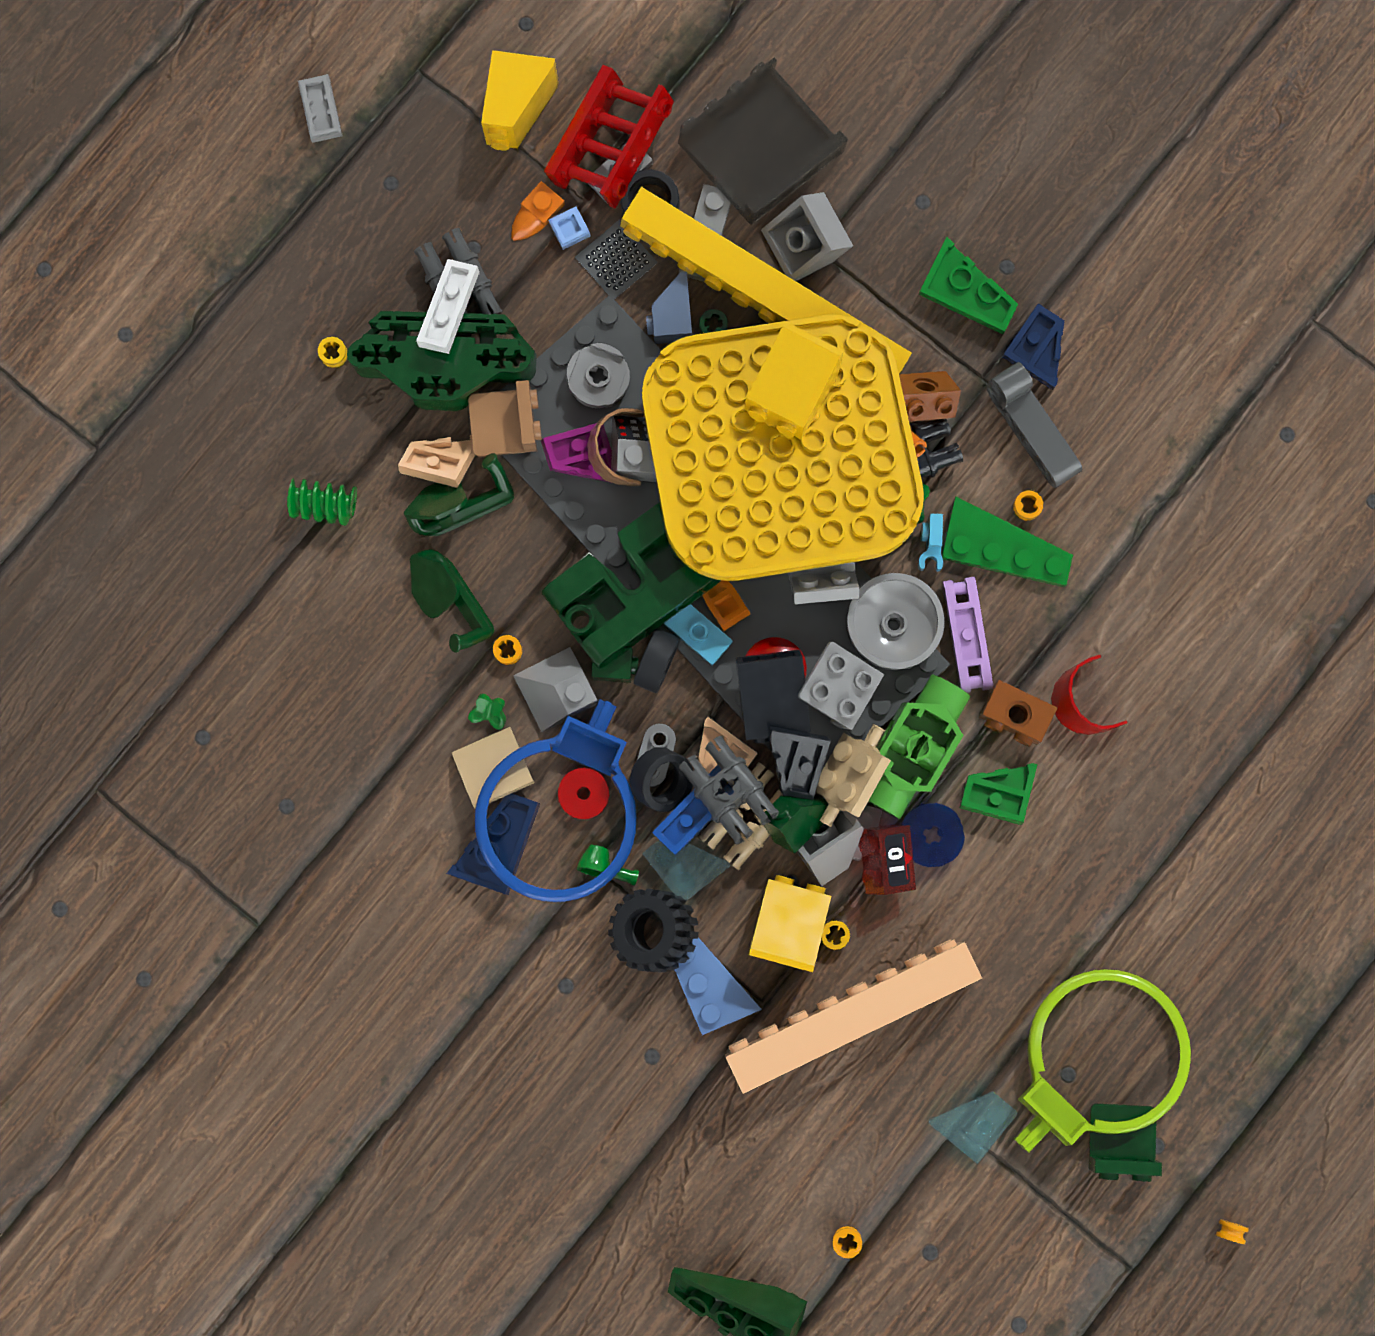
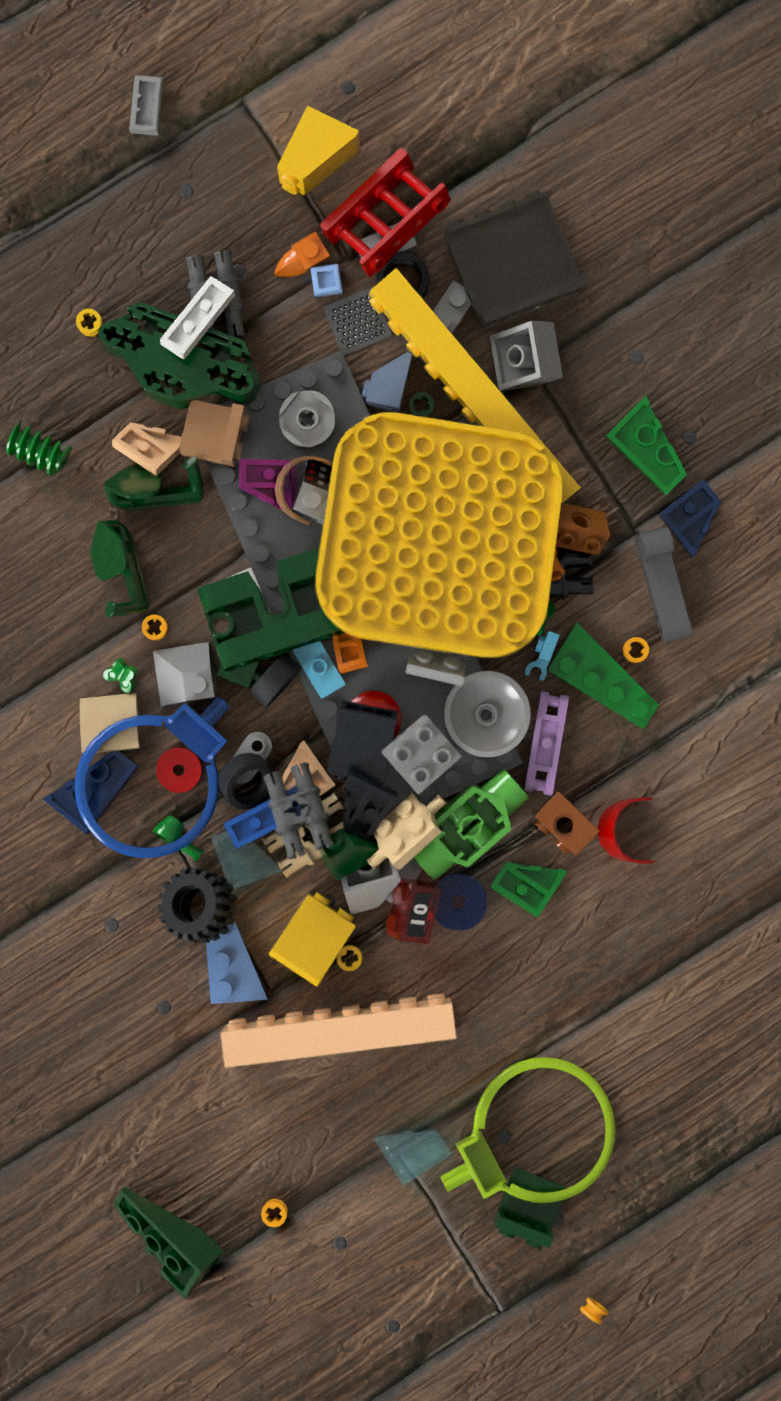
camera: 15 degrees right, 5 degrees up
(793, 381) = (466, 484): yellow slope -> none

